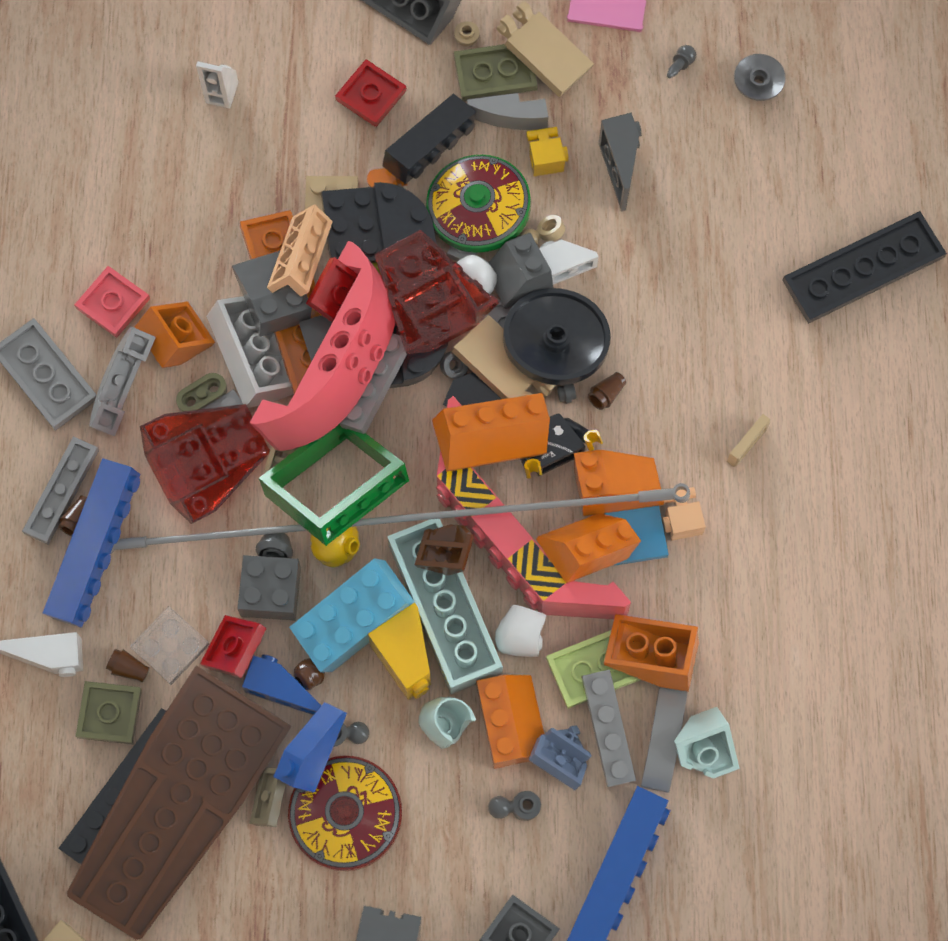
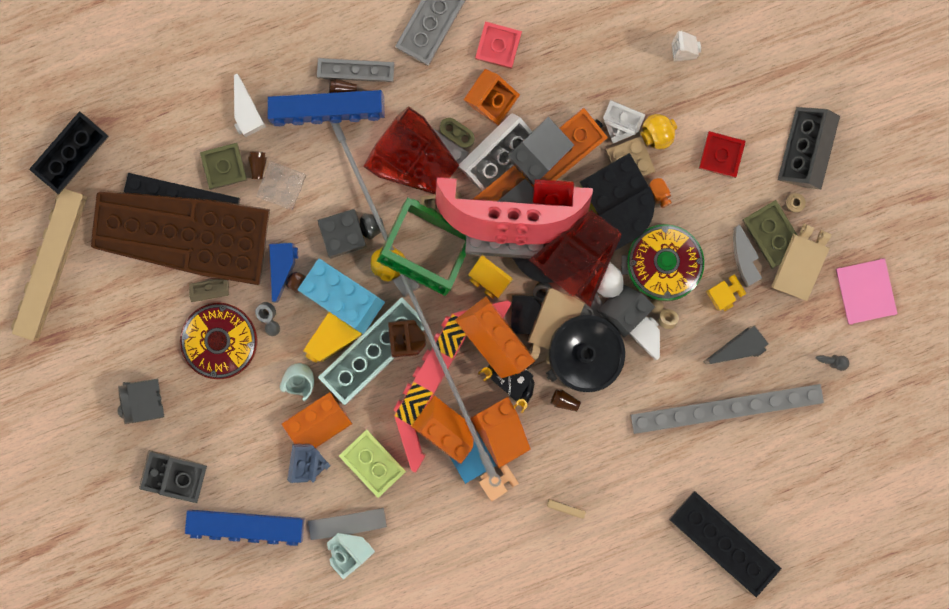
camera: 70 degrees right, 15 degrees up
(118, 379) = (442, 74): light grey slope -> none
(233, 646) = (294, 227): red plate -> none
(276, 192) = (622, 121): none -> white slope
(301, 251) = (575, 161): light nougat fence -> none
(309, 153) = (658, 131): none -> yellow plant
(310, 749) = (243, 304): blue slope -> none
(373, 535) = (400, 284): none -> light grey brick
(406, 418) = (489, 277): none -> yellow slope
(429, 139) = (700, 210): black brick -> none
(500, 807) = (258, 437): dark grey plate -> none
(520, 632) = (375, 407): white piece -> none
(608, 728) = (335, 486): light grey plate -> none
(653, 651) = (394, 497): orange slope -> none
(692, 206) = (727, 408): none -> light grey plate
(762, 68) = (851, 424): flat silver dish -> none

